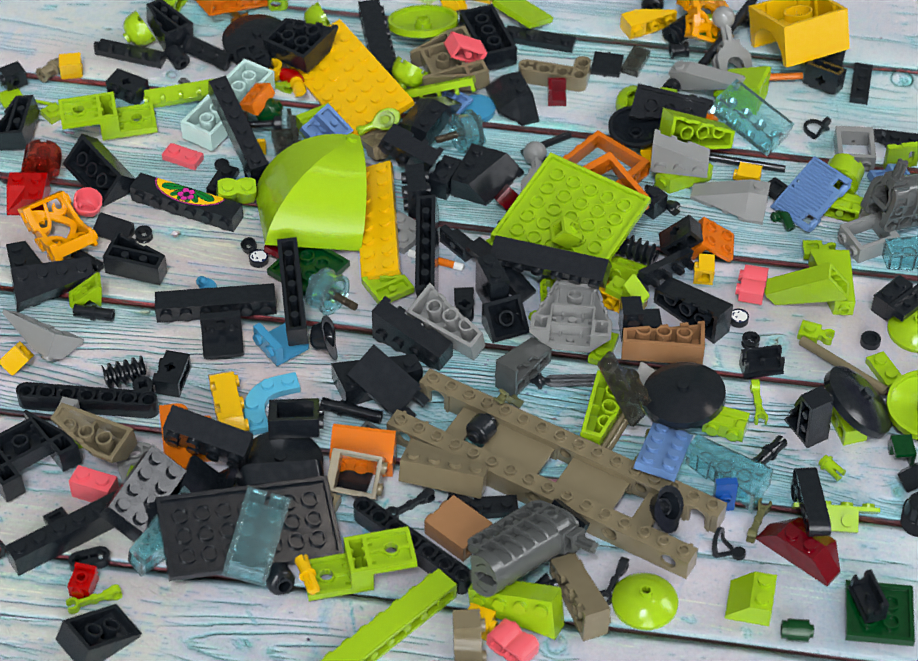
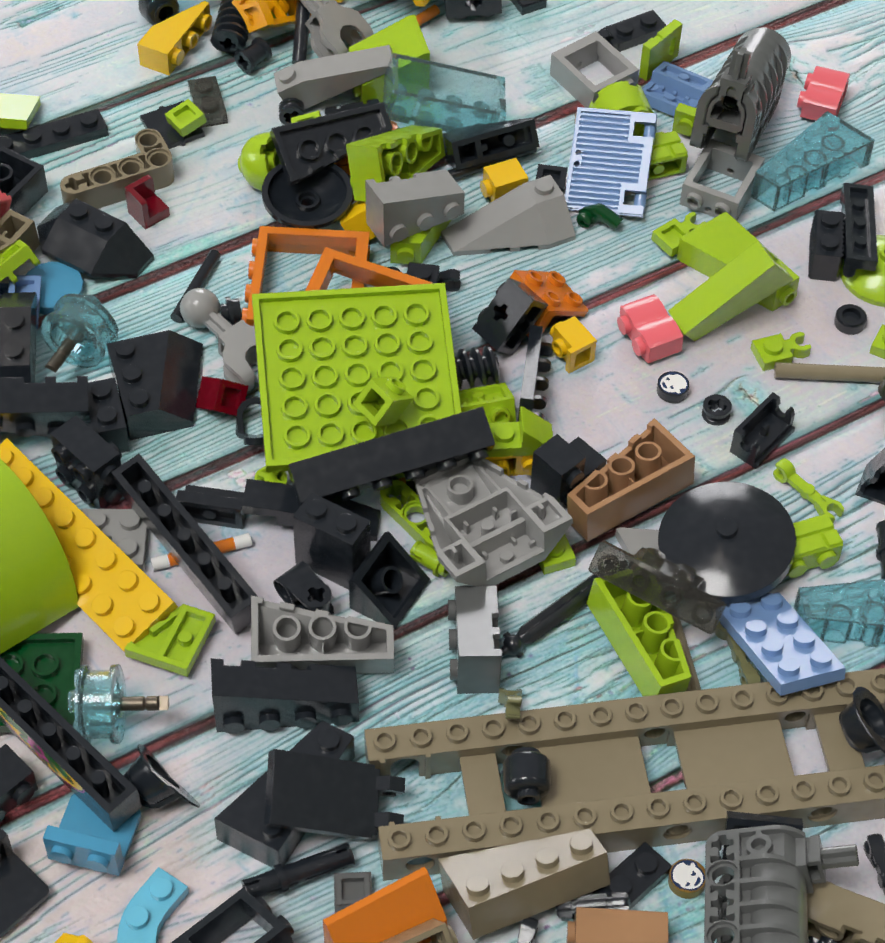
camera: 40 degrees left, 5 degrees up
(613, 62) = (185, 117): none -> lime plate
(695, 305) = (614, 404): black wedge -> none
(757, 151) = (489, 142): none -> black slope
(824, 125) = (517, 82): black piece -> none

